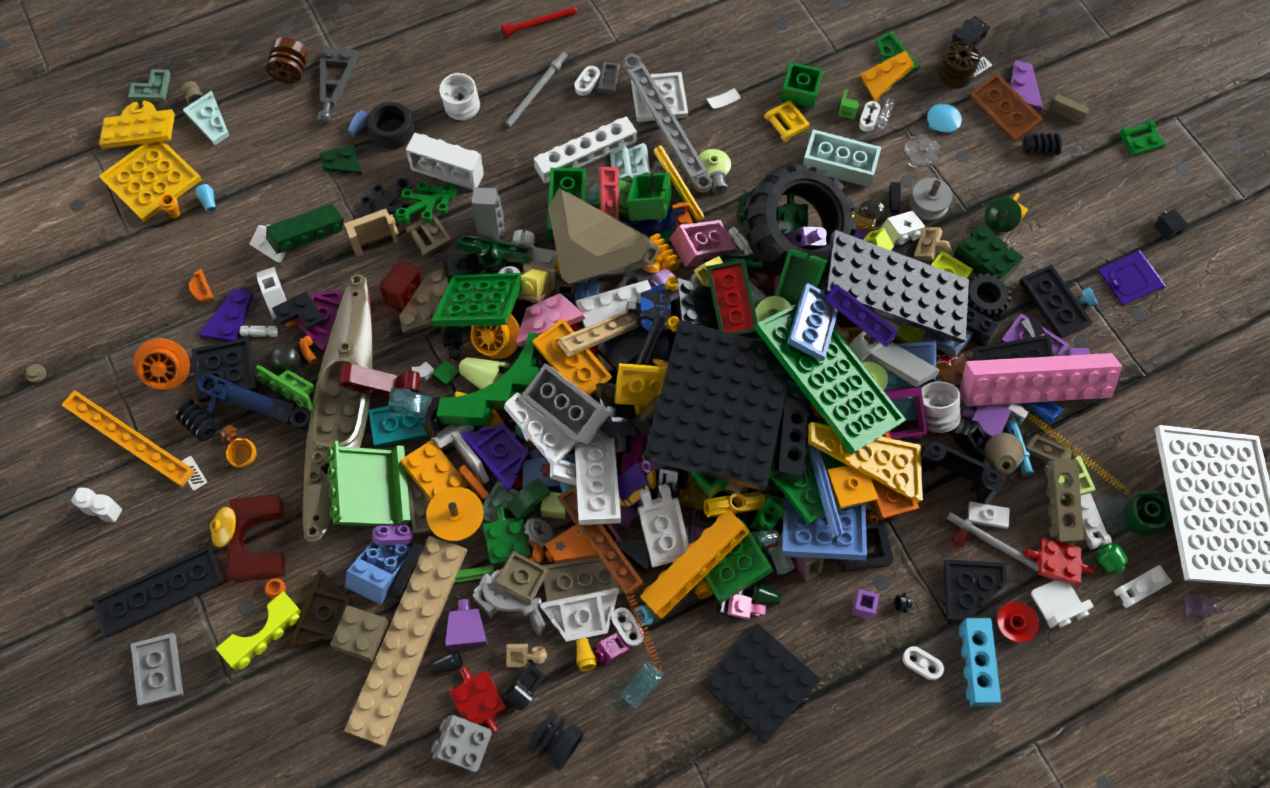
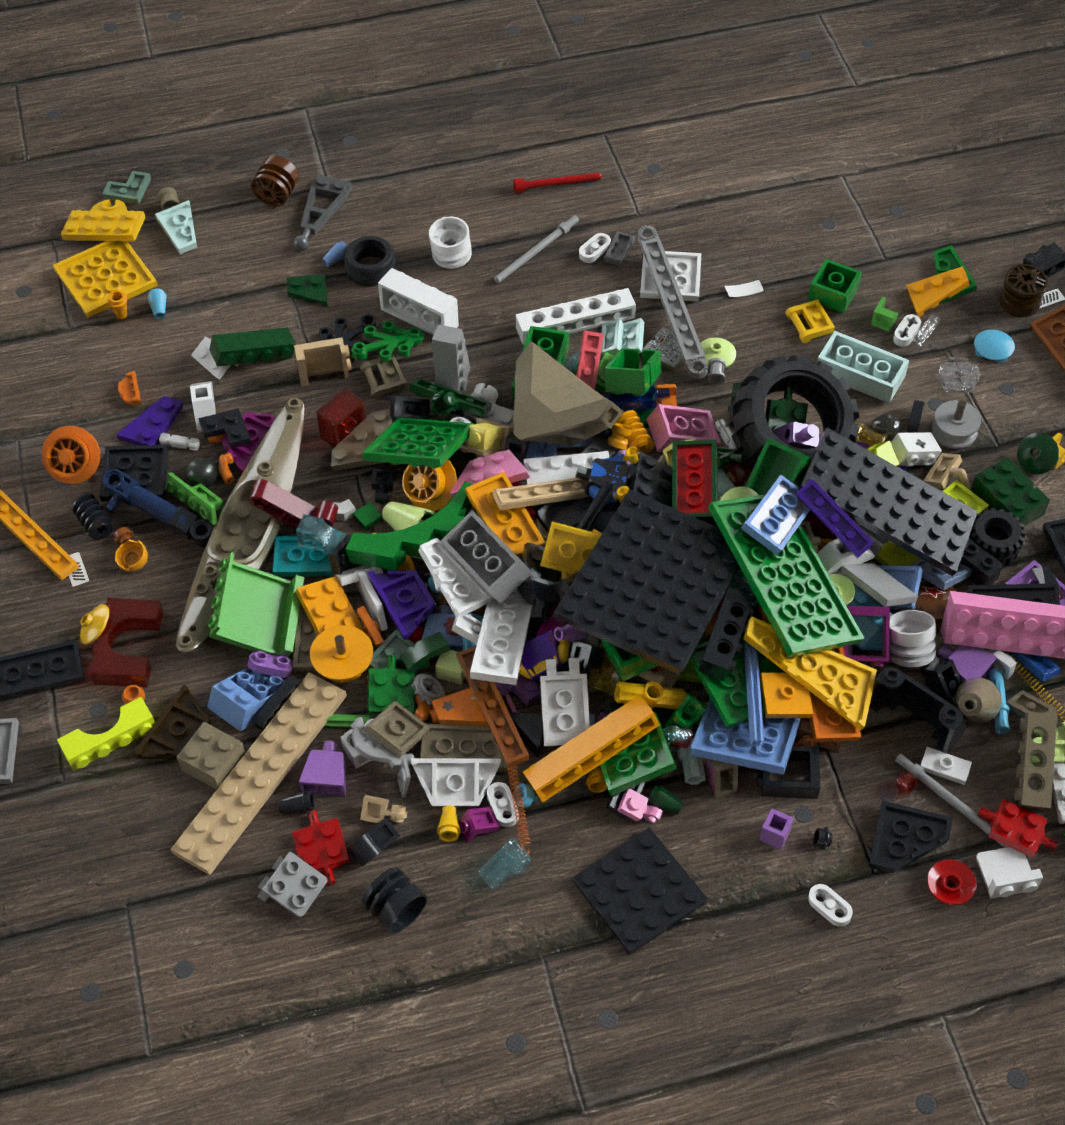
camera: 15 degrees right, 10 degrees down
(678, 183) = (670, 365): yellow axle -> none
(982, 630) = (889, 951): medium azure brick -> none

